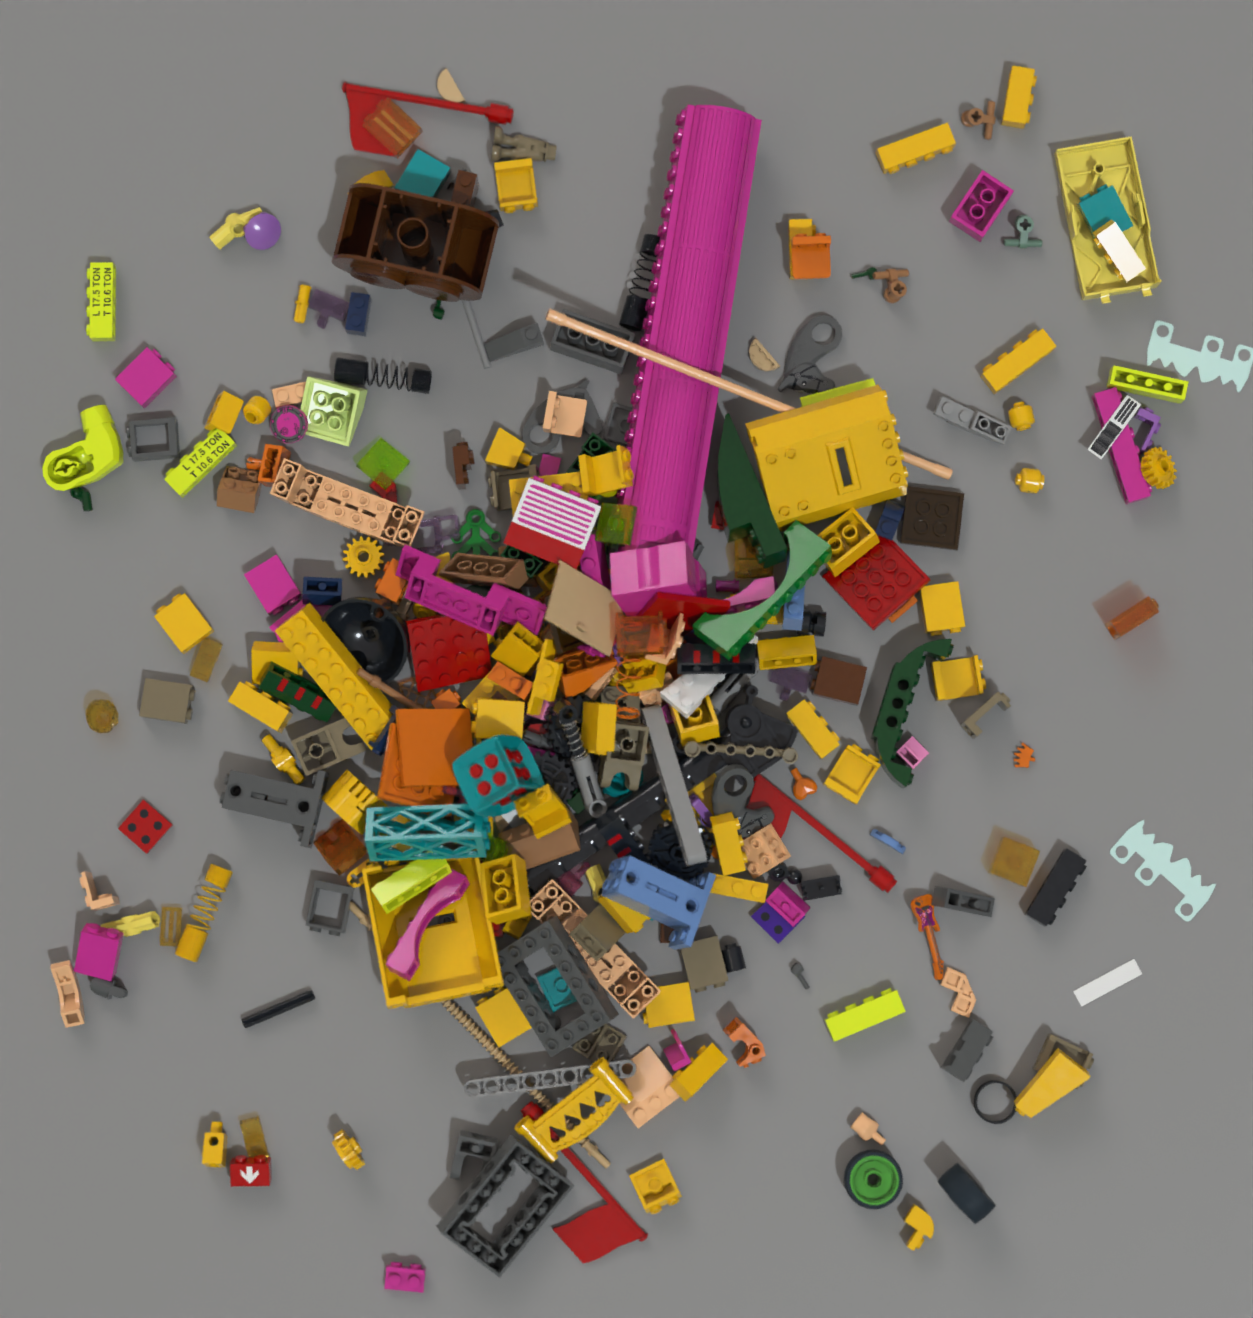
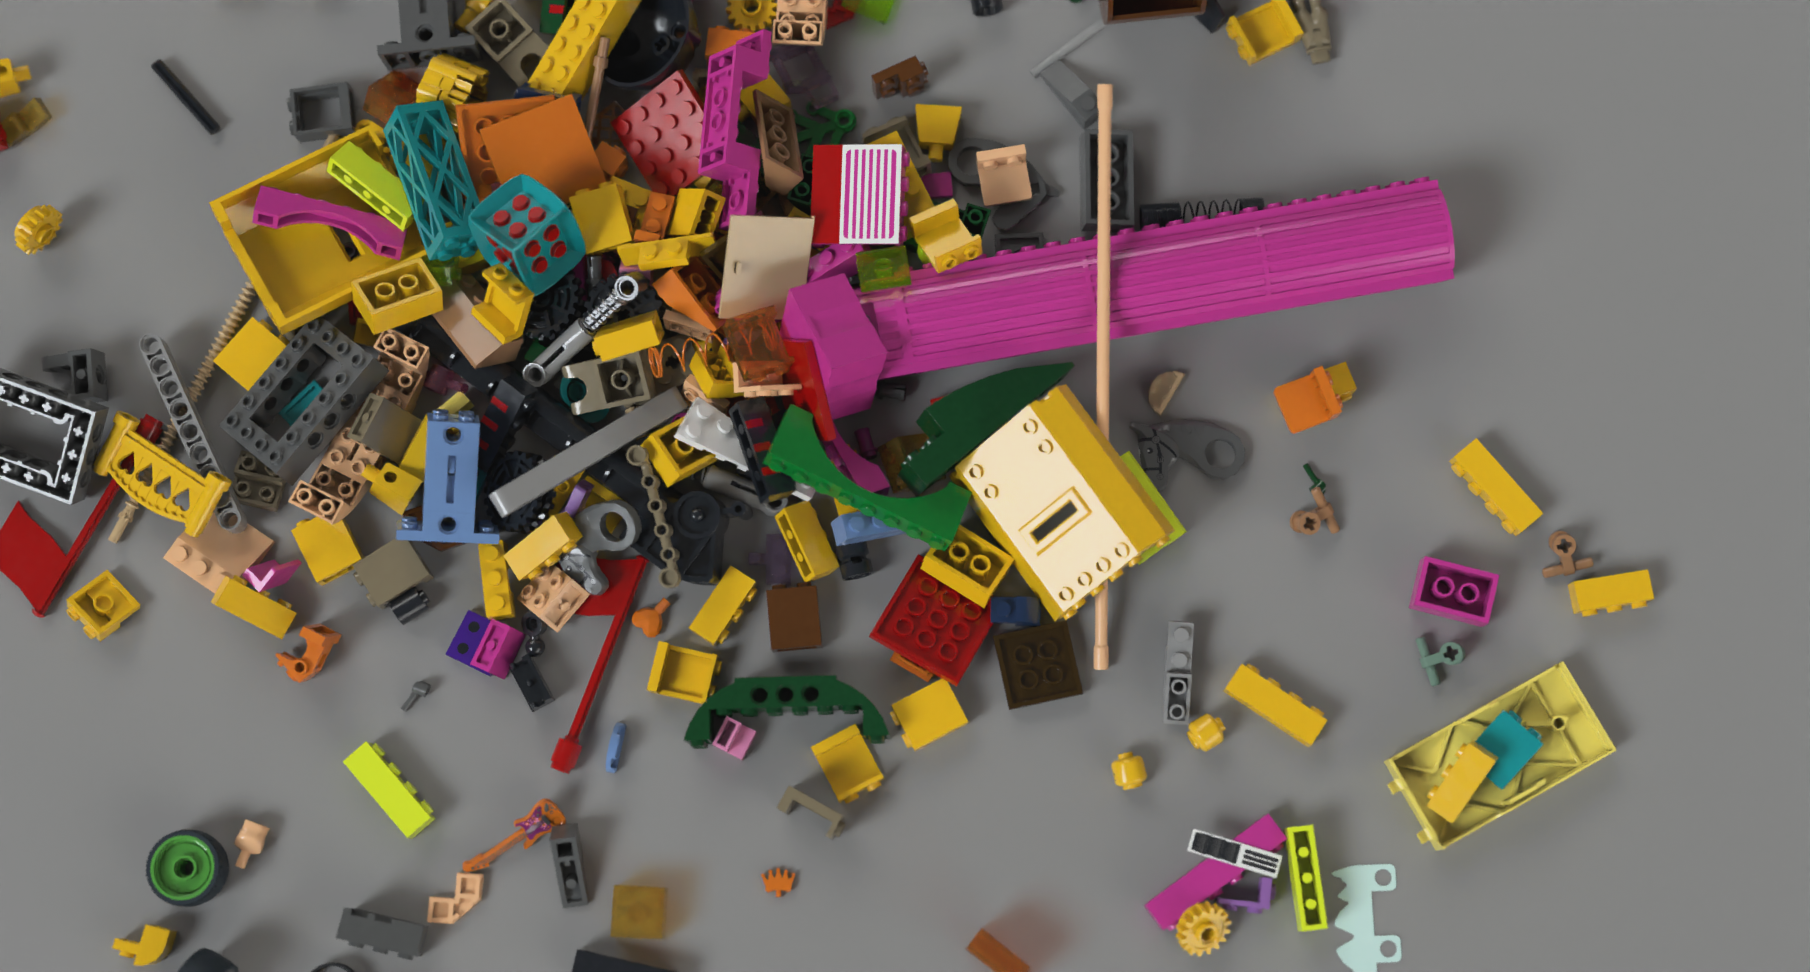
camera: 75 degrees right, 5 degrees down
(643, 940) = (392, 486): none -> yellow torso

